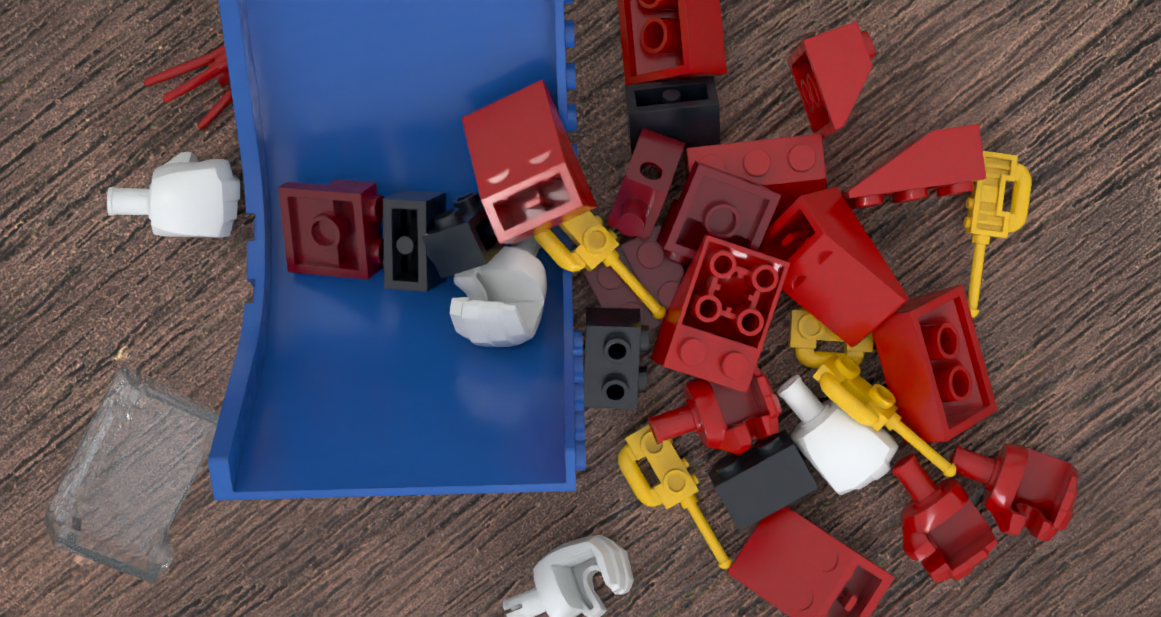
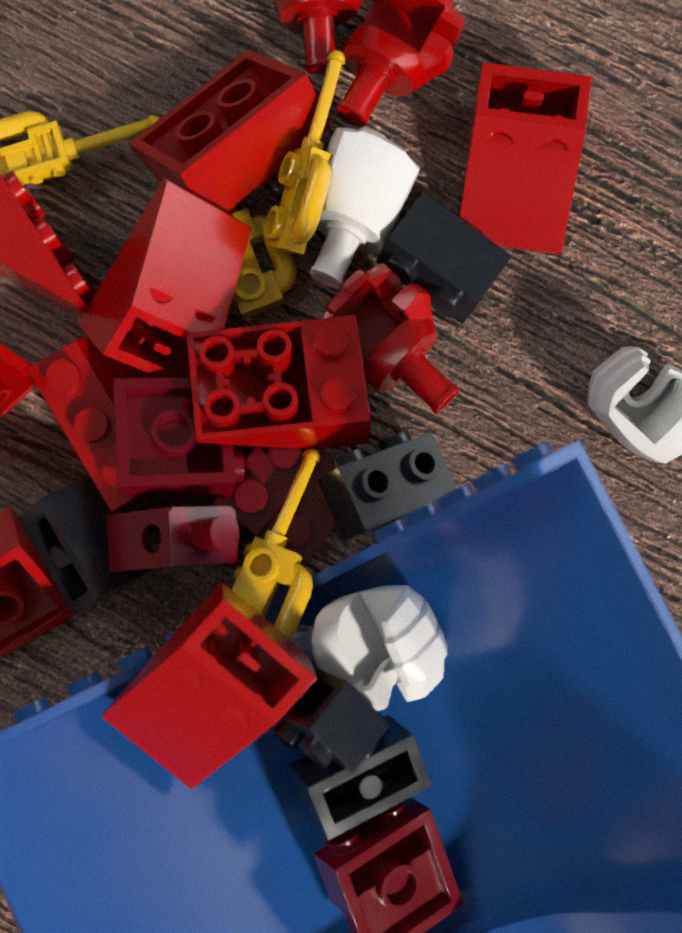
camera: 115 degrees left, 5 degrees down
(674, 484) = (494, 354): yellow piece -> none

